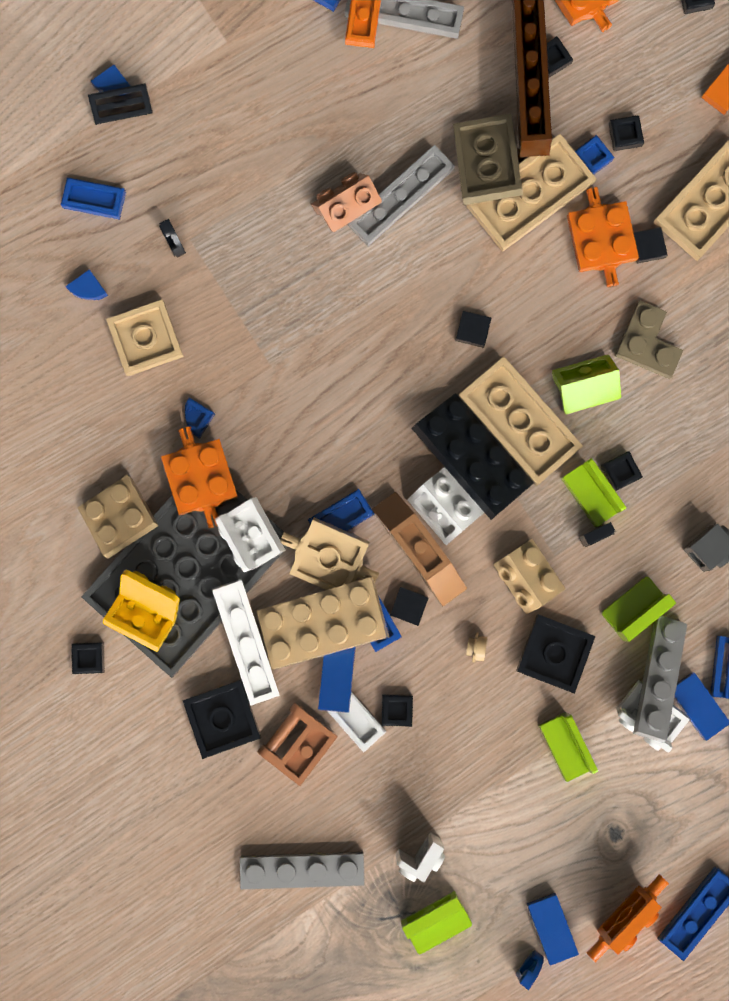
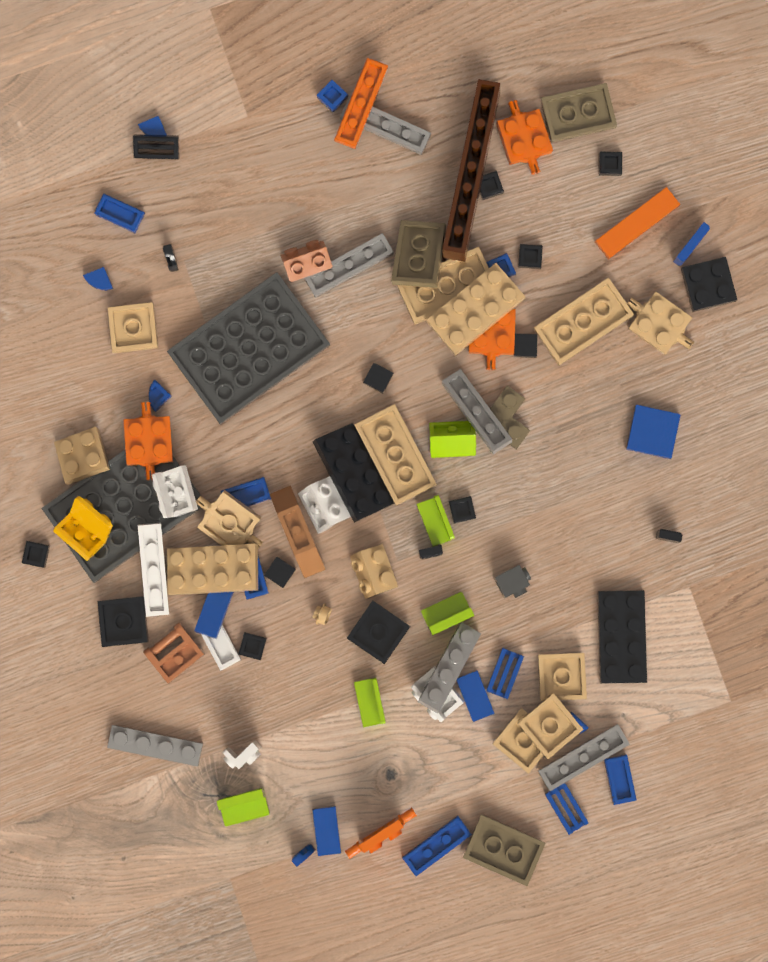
camera: 15 degrees right, 0 degrees up
(299, 329) = (248, 348): none -> dark grey plate
(577, 211) = (475, 309): none -> tan plate
(612, 341) = (477, 411): none -> light grey plate

